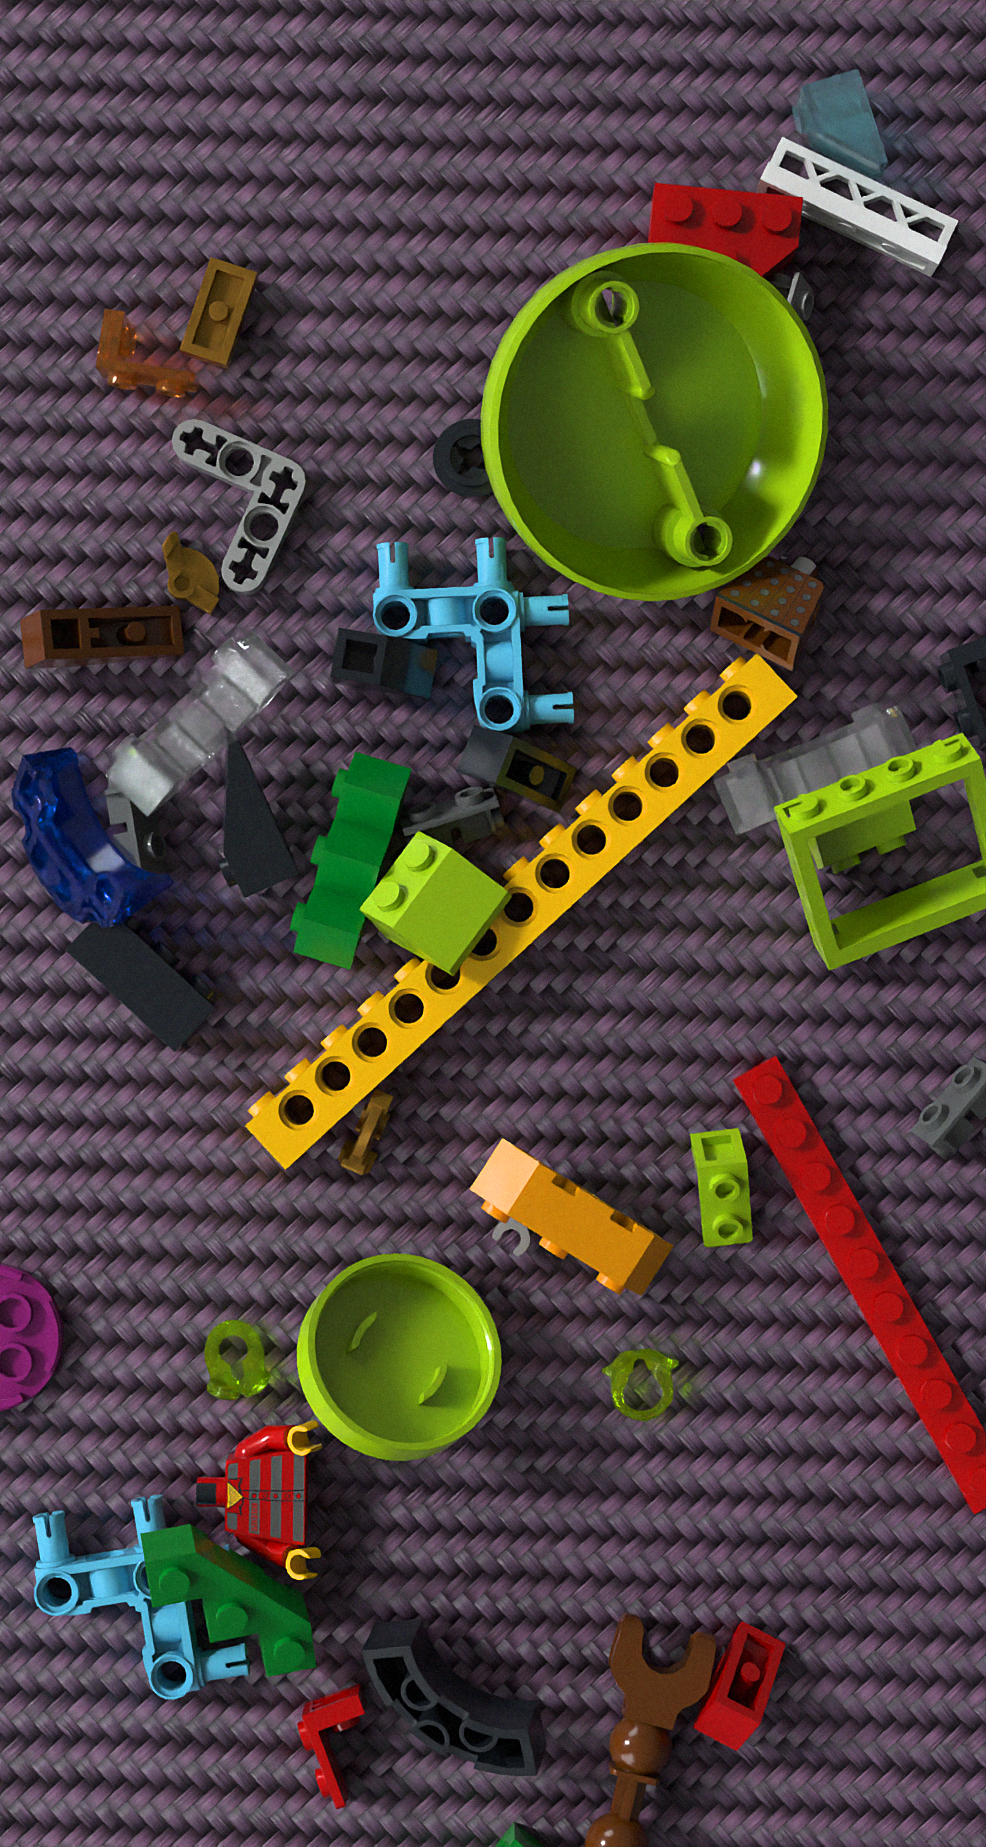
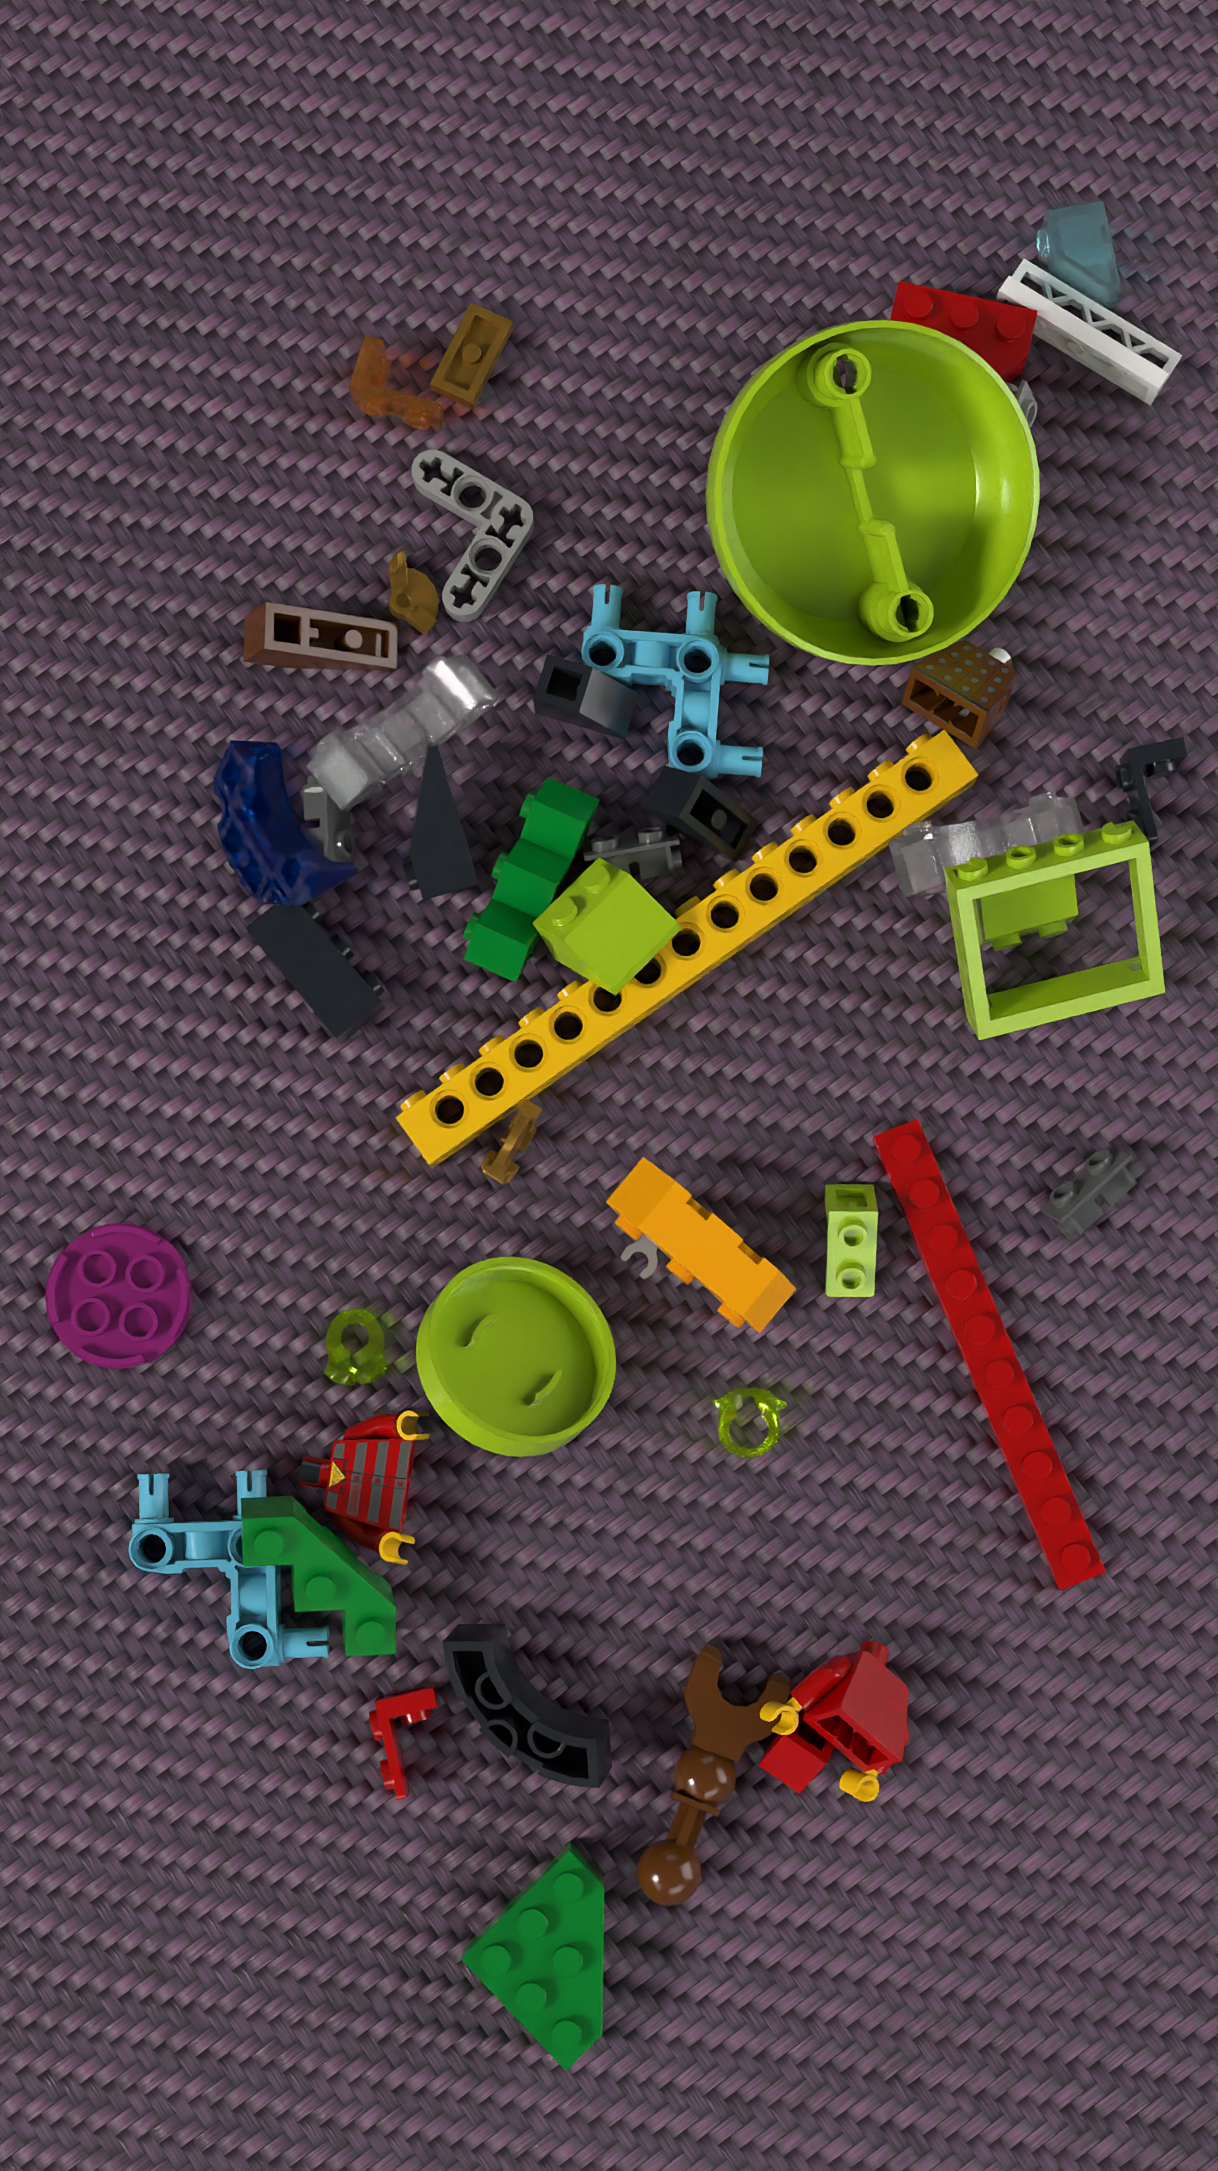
camera: 10 degrees right, 5 degrees down
(448, 462) = (670, 520): black gear -> none
(783, 1662) = (856, 1709): none -> red torso

